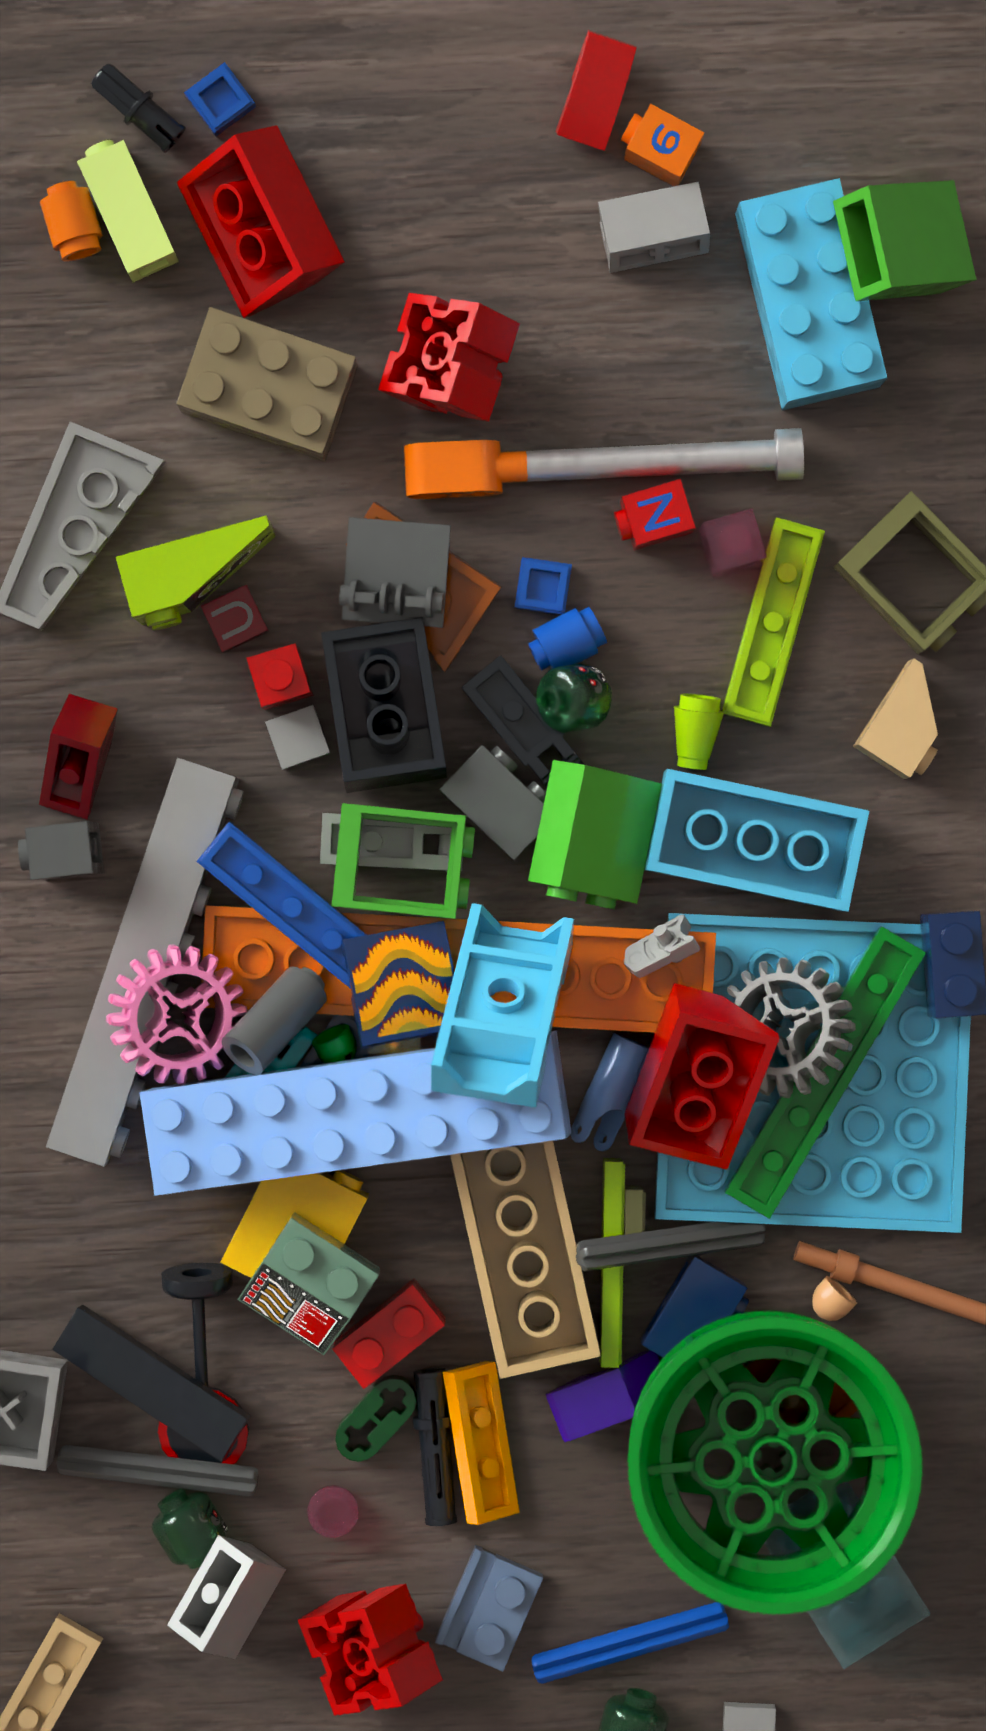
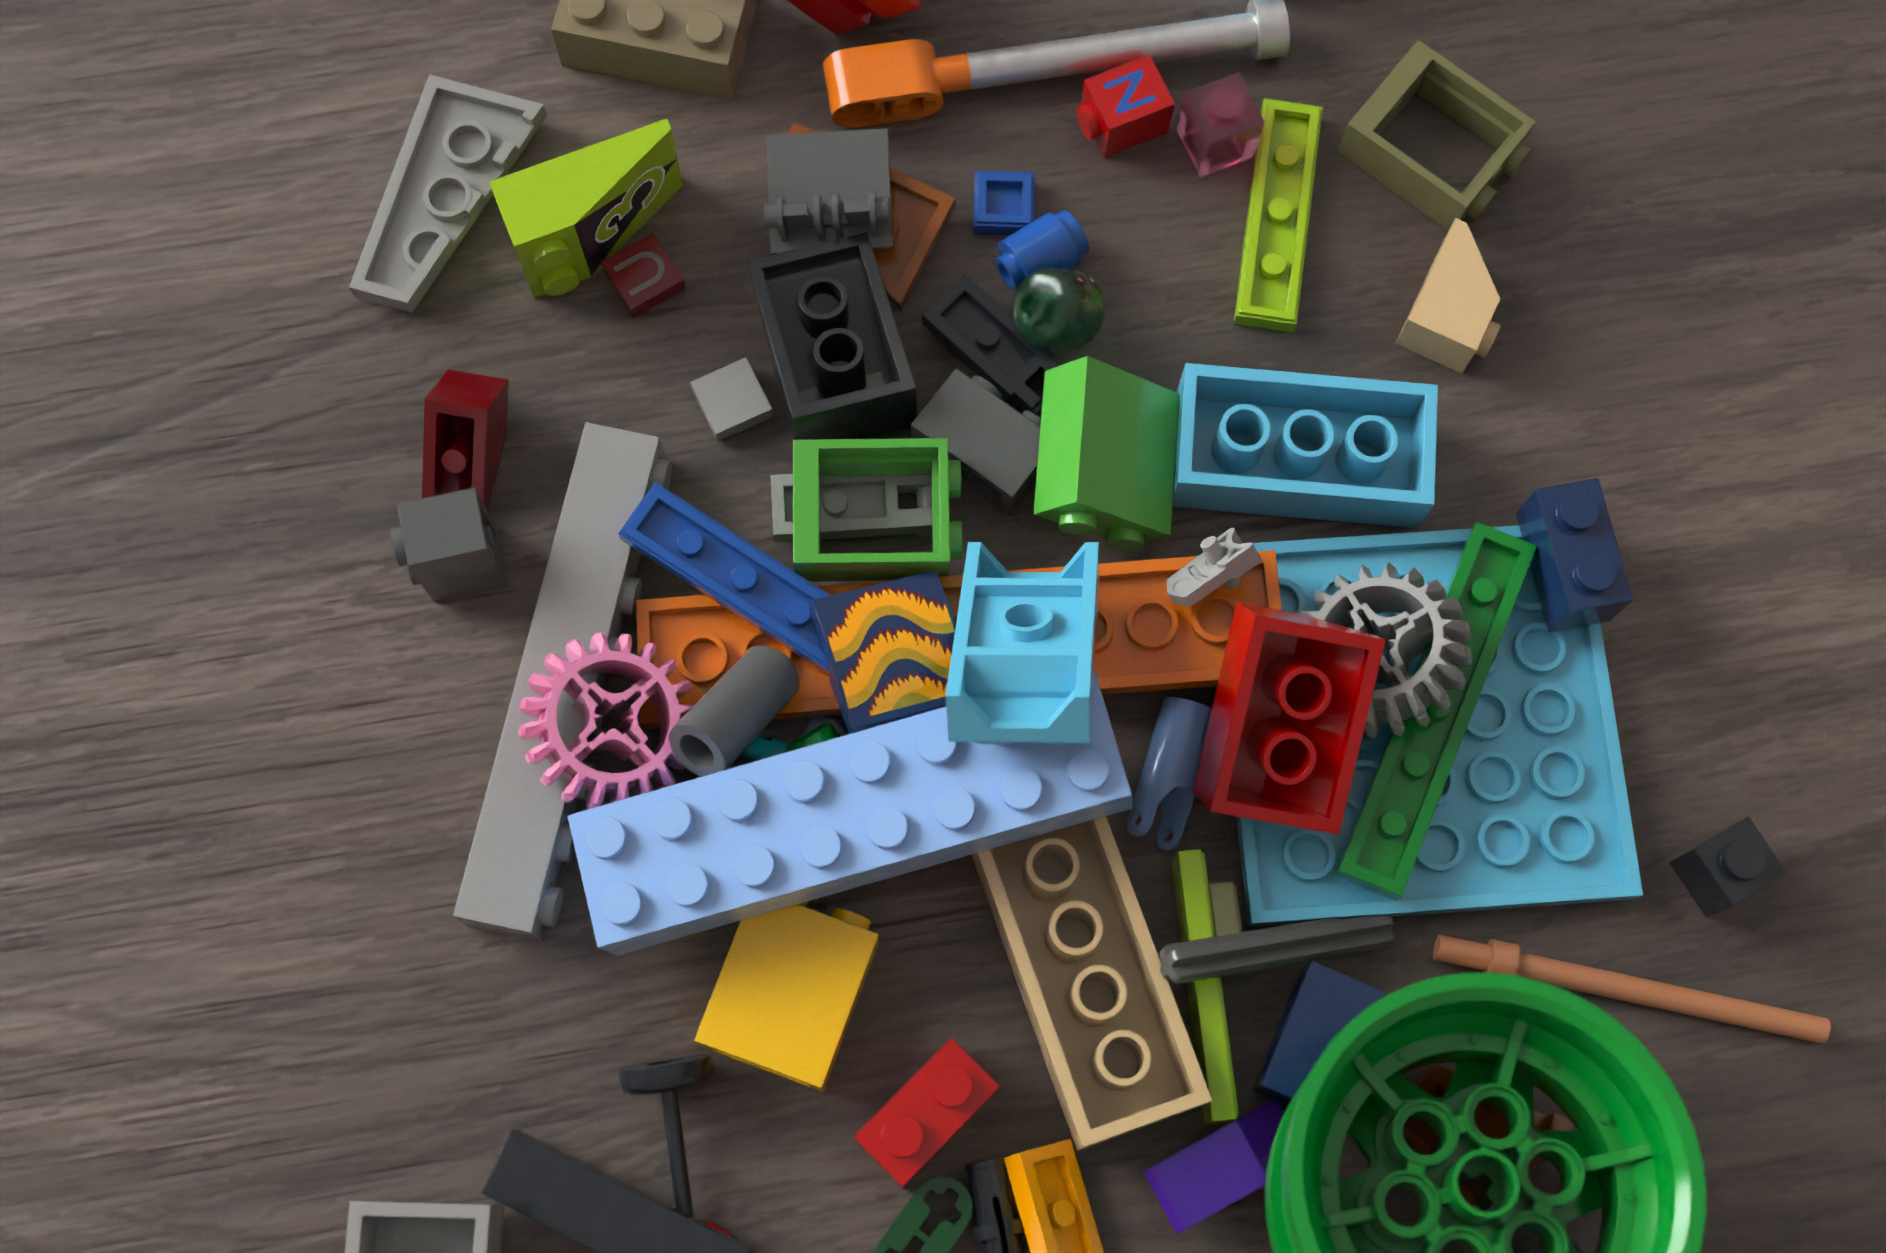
camera: 10 degrees left, 15 degrees down
(279, 676) = (703, 325): red brick -> none
(309, 1284) = (813, 1049): sand green slope -> none
(696, 729) = (1209, 327): lime cone -> none

